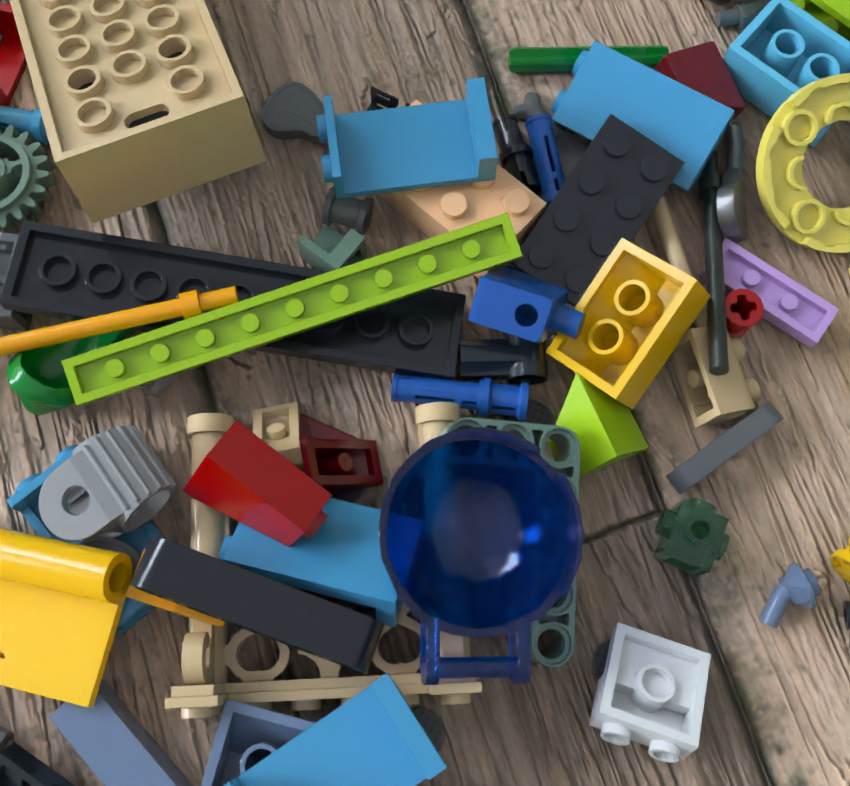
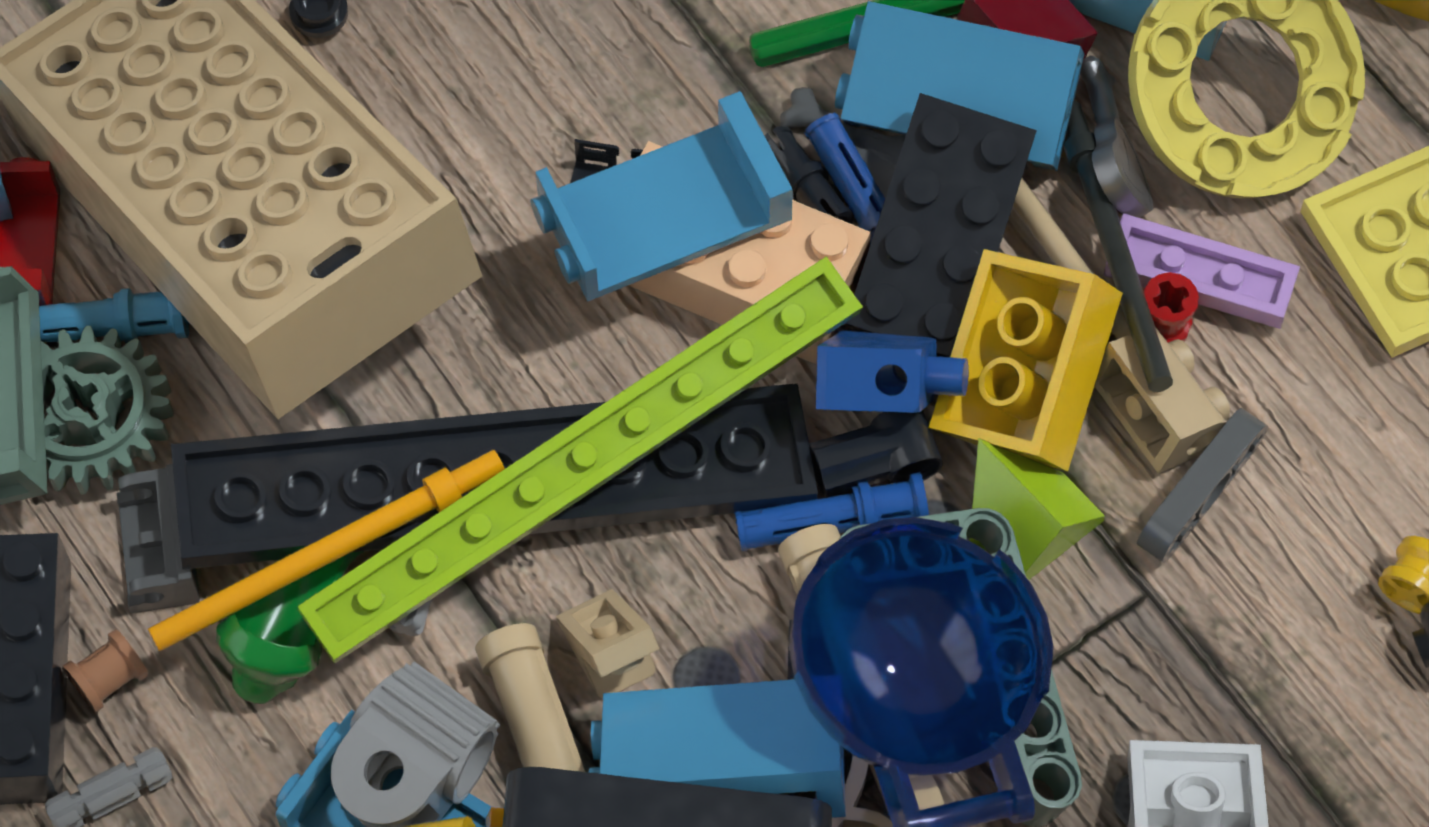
camera: 15 degrees left, 10 degrees down
(259, 487) = (616, 686): red slope -> none
(292, 113) = (492, 204): dark grey piece -> none
(332, 249) = (593, 375): sand green panel -> none
(337, 458) = (700, 646): dark red slope -> none
(348, 211) = (598, 318): dark grey bush -> none
(691, 536) = (1190, 606): clear green brick -> none
(796, 586) = (1347, 632): sand blue plate -> none

